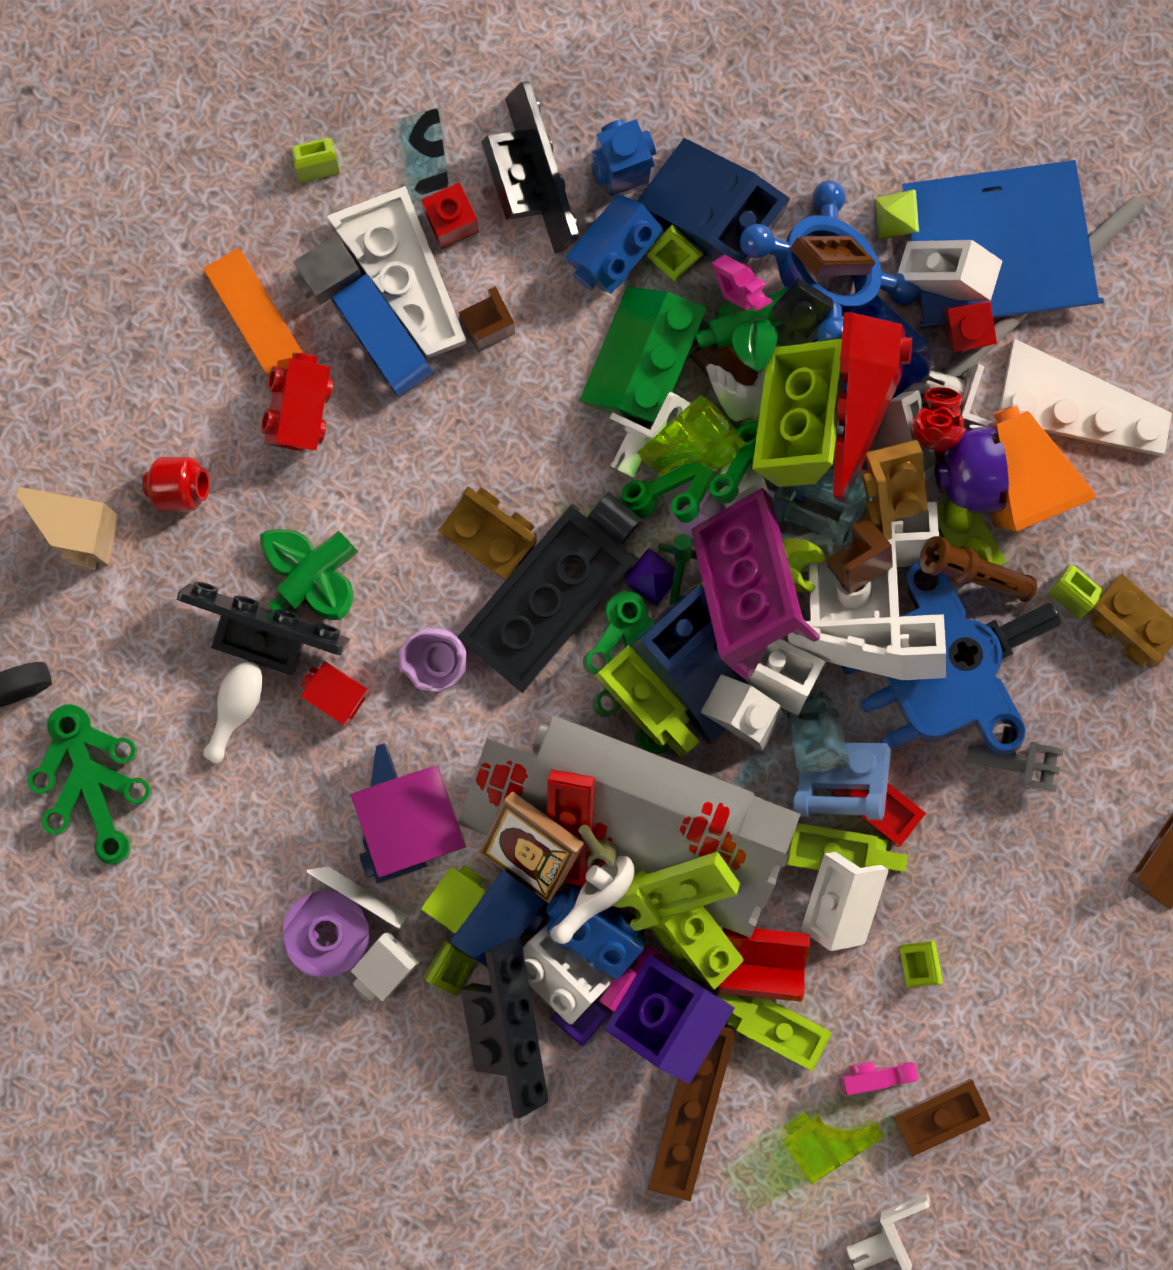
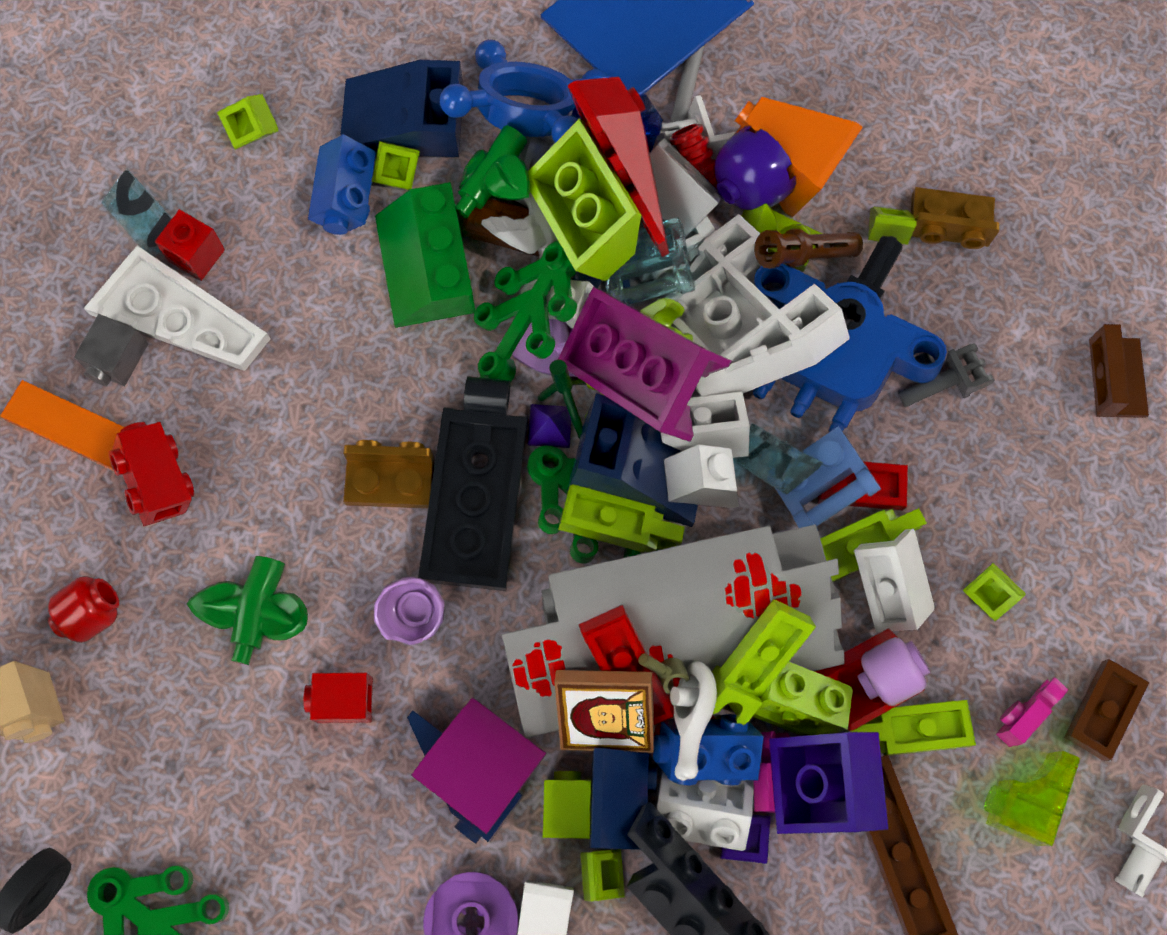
camera: 30 degrees left, 10 degrees down
(235, 704) = (255, 766): white piece -> none
(260, 634) = (237, 691): black bracket -> none
(315, 159) = (49, 274): lime slope -> none
(359, 895) = (478, 864): white sticker -> none
(382, 335) = (192, 372): blue beam -> none
(488, 321) = (277, 307): reddish brown panel -> none
(527, 170) = (236, 175): black bracket -> none
(573, 122) = (248, 120): none -> lime slope
(622, 156) = (304, 112): blue brick -> none
(638, 436) = (464, 314): white bracket -> none
(694, 436) = (508, 284): clear neon green arch -> none
(740, 284) = (465, 145): dark pink plate -> none
(784, 970) = (893, 671): none -> lavender head
(802, 307) = (528, 127): black plate -> none
(832, 255) = (524, 80): reddish brown plate -> none
(863, 558) = (716, 283): reddish brown panel -> none
(894, 484) = (700, 211): pearl gold bracket -> none
(897, 214) = (552, 37): lime slope -> none
(938, 428) = (702, 152): red plate -> none
(951, 268) = (623, 41): white slope -> none
(970, 326) = (667, 72): red brick -> none
(1080, 404) = (804, 82): white wing -> none

